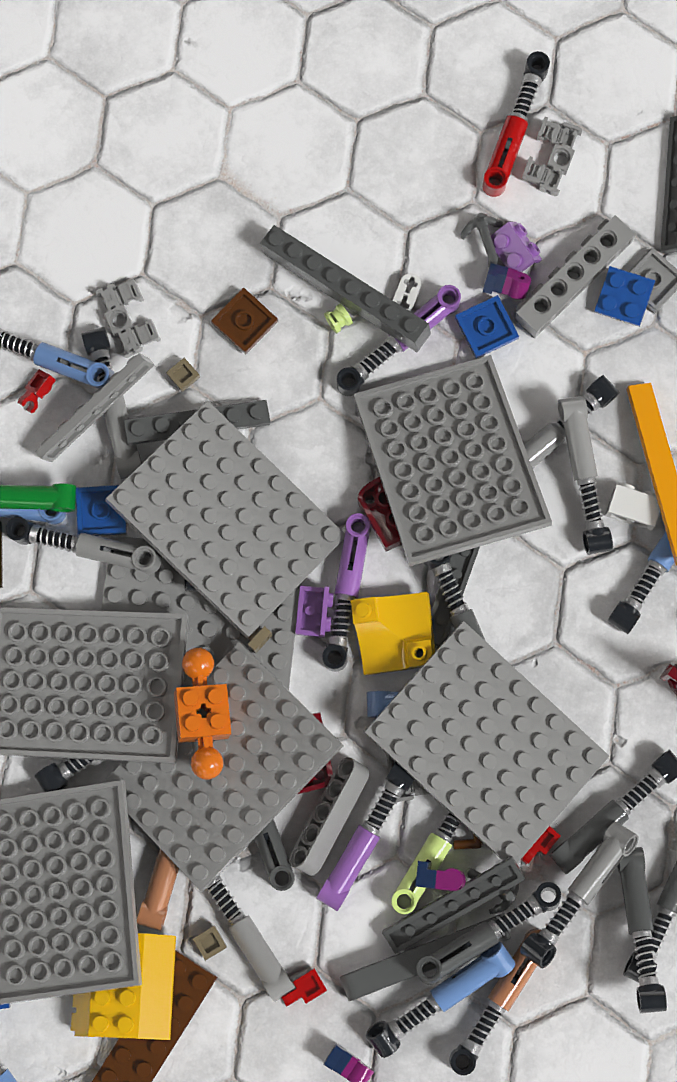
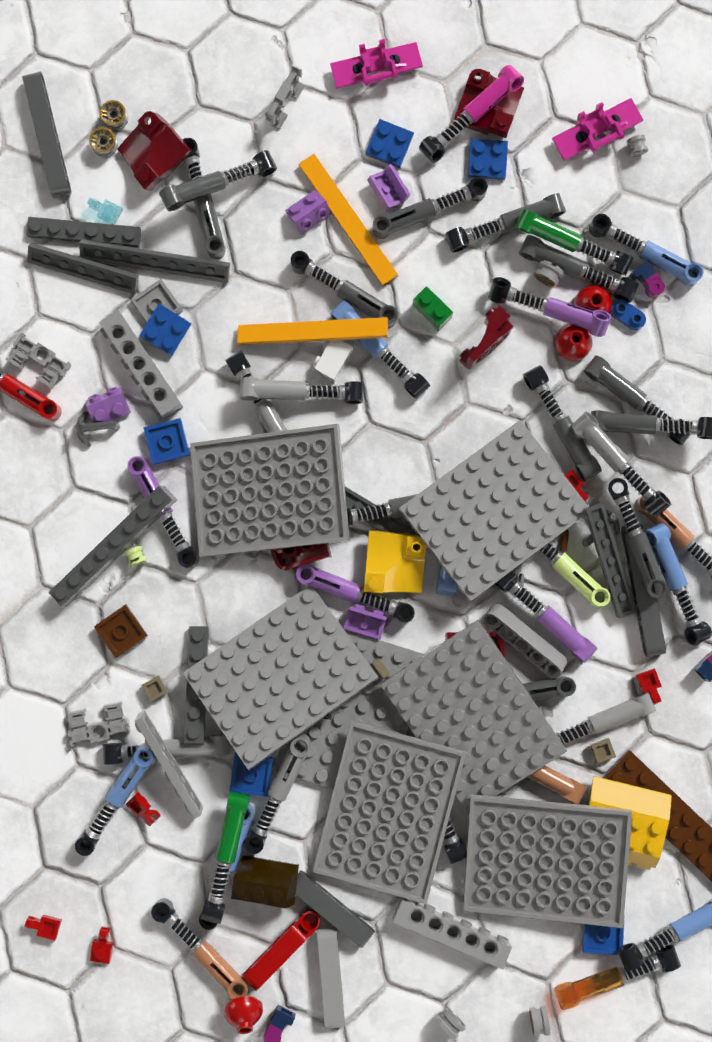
camera: 80 degrees left, 5 degrees up
(191, 727) = (472, 727): orange brick -> none
(414, 292) = (125, 502): white beam -> none
(450, 879) = (591, 567): leg -> none
(507, 282) = (134, 418): leg -> none

